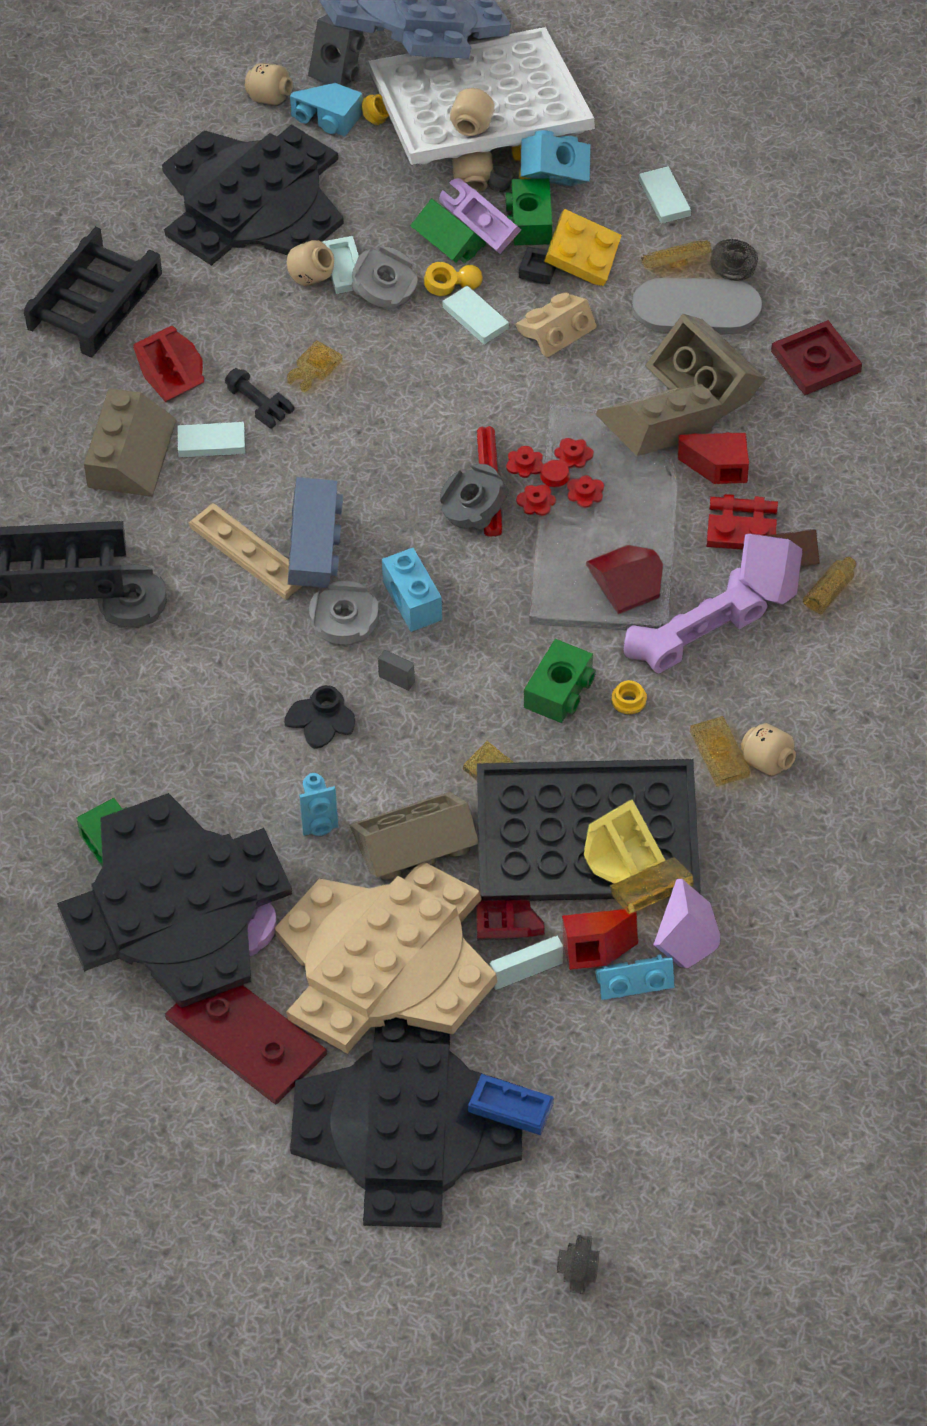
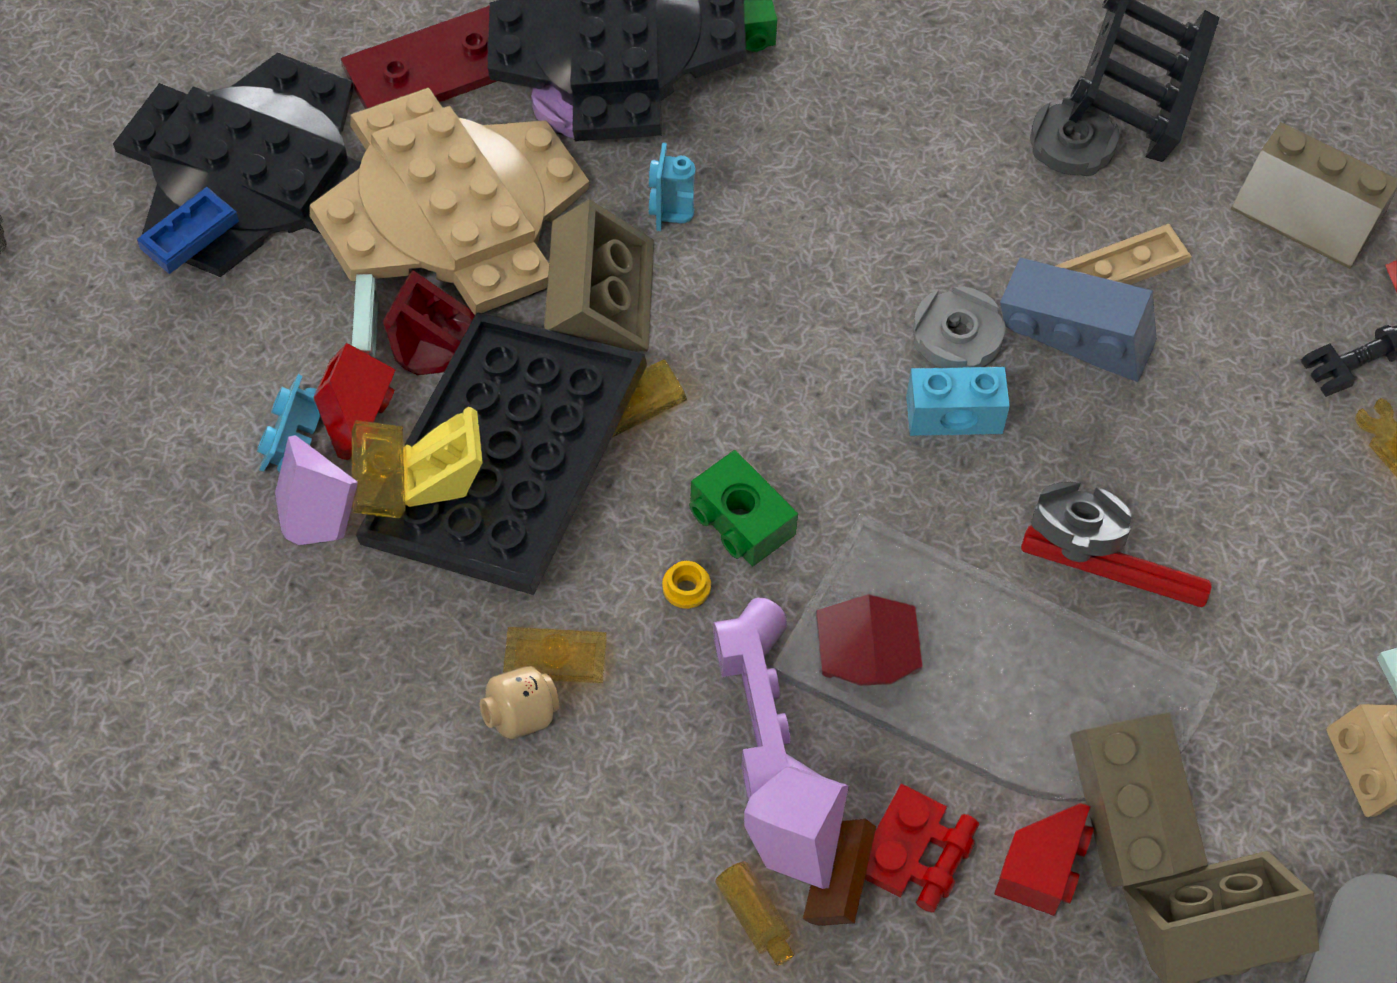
camera: 110 degrees right, 5 degrees up
(211, 439) = (1301, 290): light aqua tile -> none
(319, 720) = (807, 260): black plate -> none
(396, 669) = (841, 346): dark grey tile -> none
(555, 474) = (1082, 629): red plant -> none

